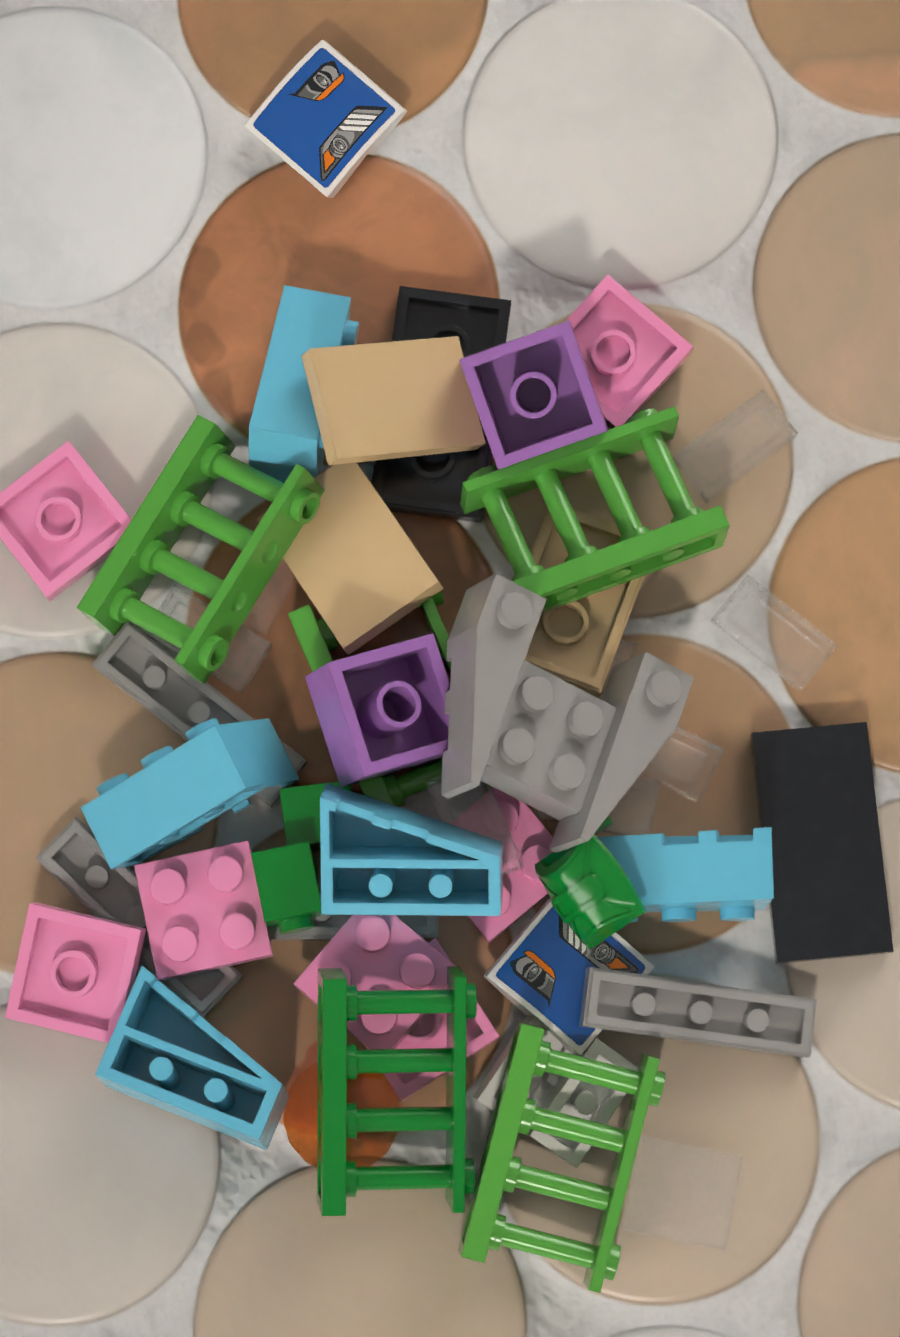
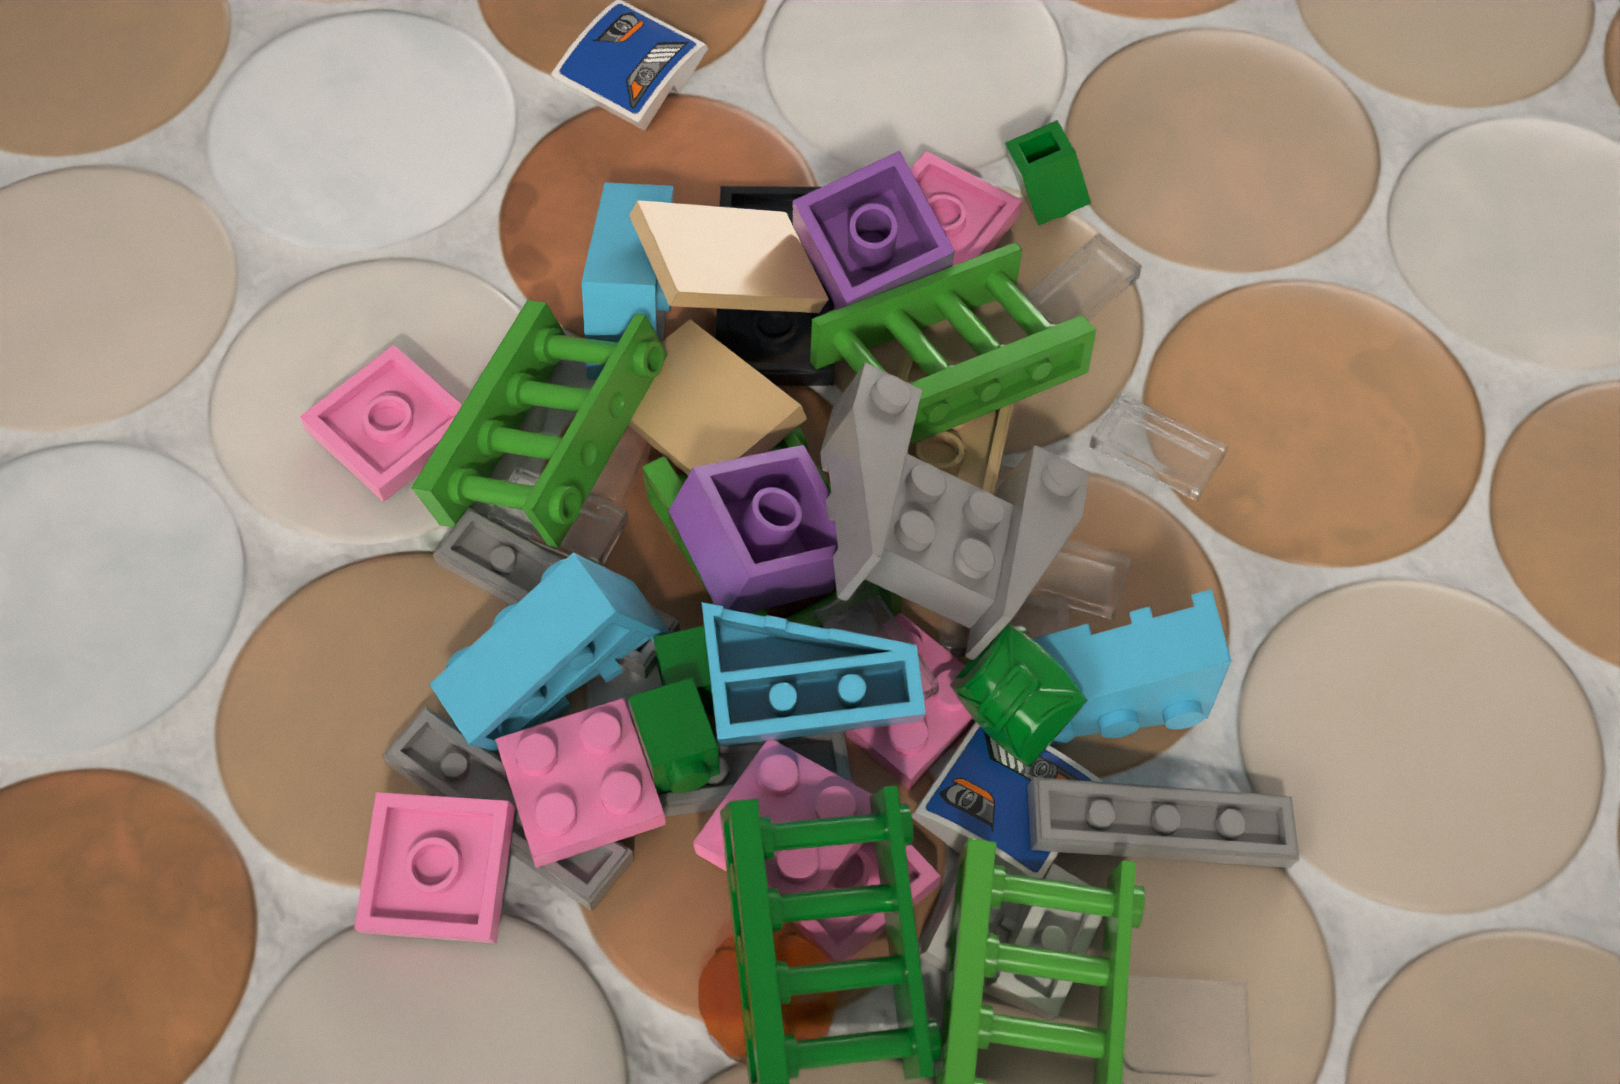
camera: 10 degrees left, 20 degrees down
(189, 1068) = (579, 953): medium azure wedge -> none
(722, 322) = (1048, 172): none -> green brick
(825, 842) = (1282, 682): black tile -> none

